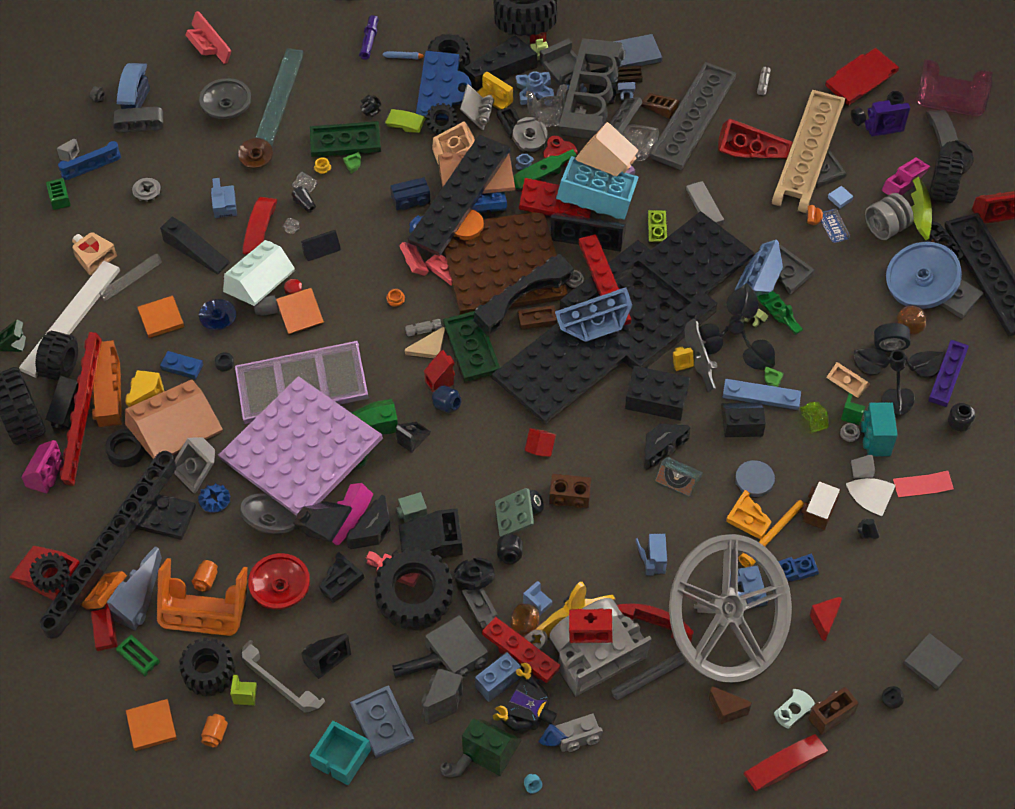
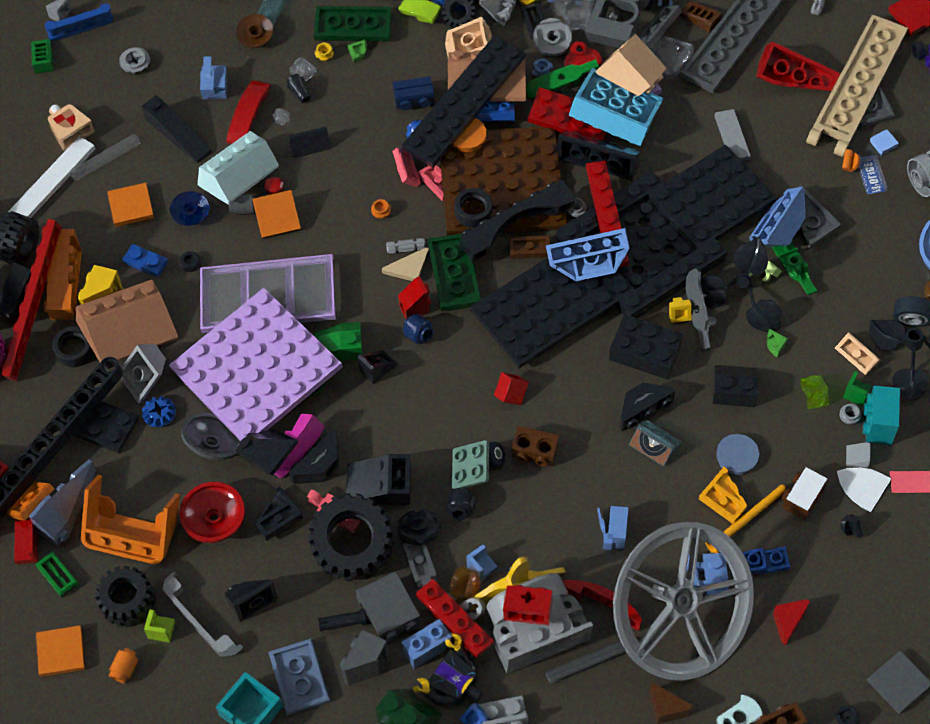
camera: 10 degrees right, 5 degrees up
(205, 576) = (137, 496): orange brick -> none
(411, 507) = (363, 446): sand green brick -> none
(481, 275) = (476, 195): none -> black tyre
(657, 226) = (675, 155): lime slope -> none
(762, 393) = (760, 359): medium blue plate -> none

